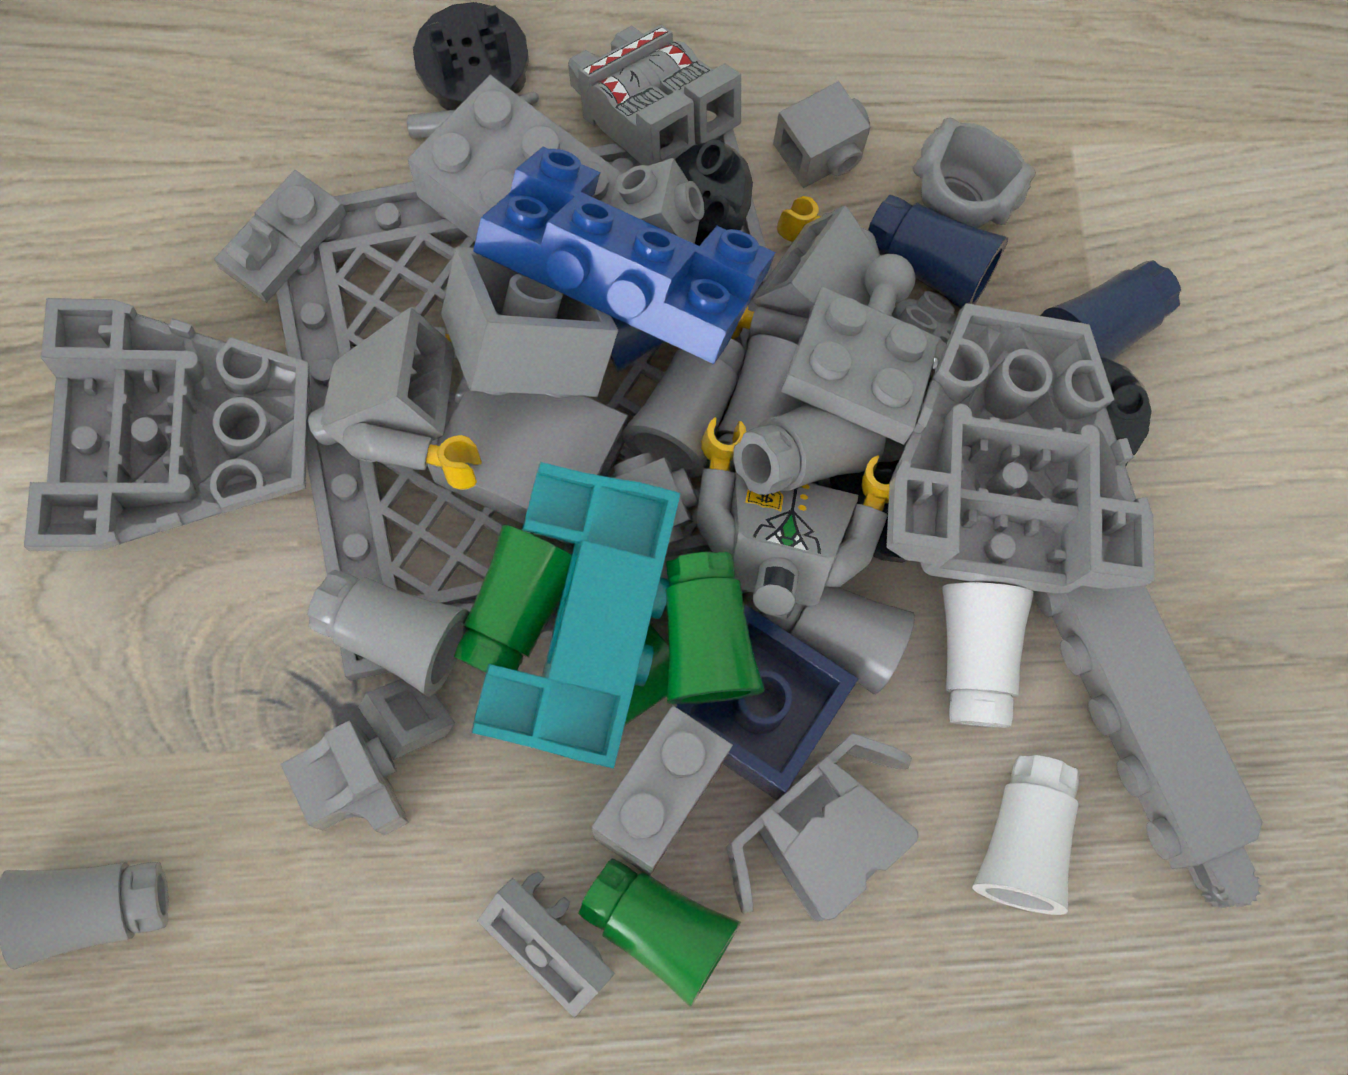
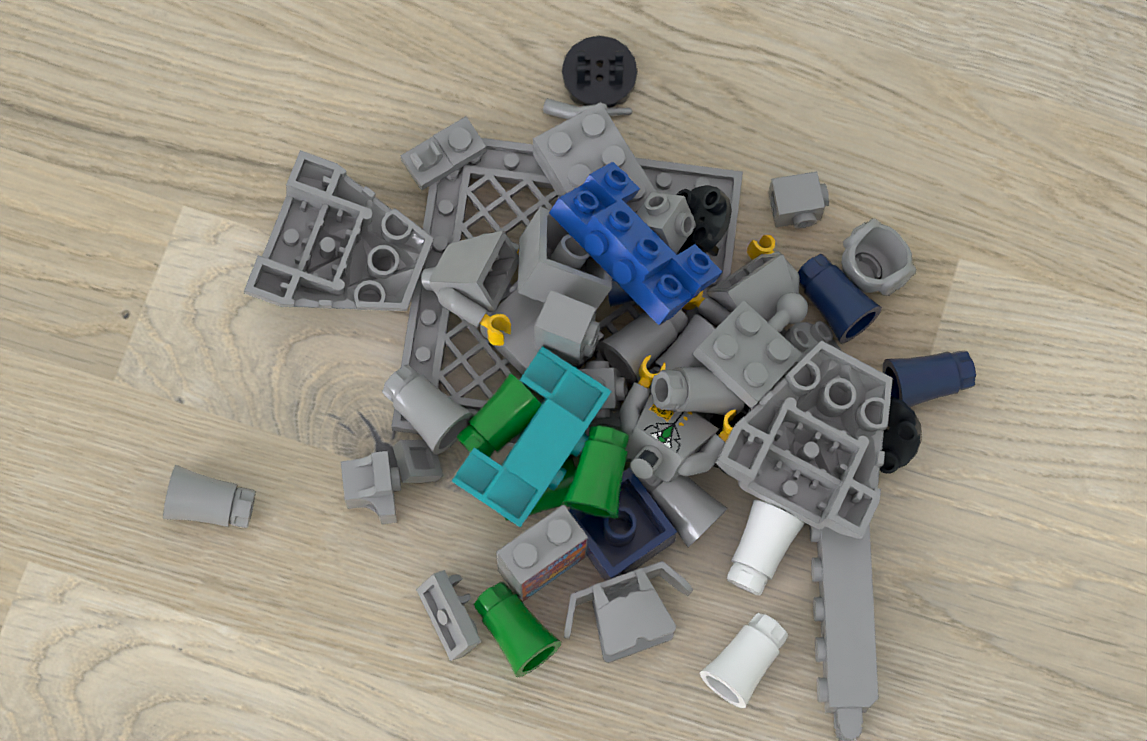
camera: 25 degrees right, 0 degrees up
(570, 416) = (567, 328): none -> light grey brick
(655, 90) = (700, 138): light grey hips -> none

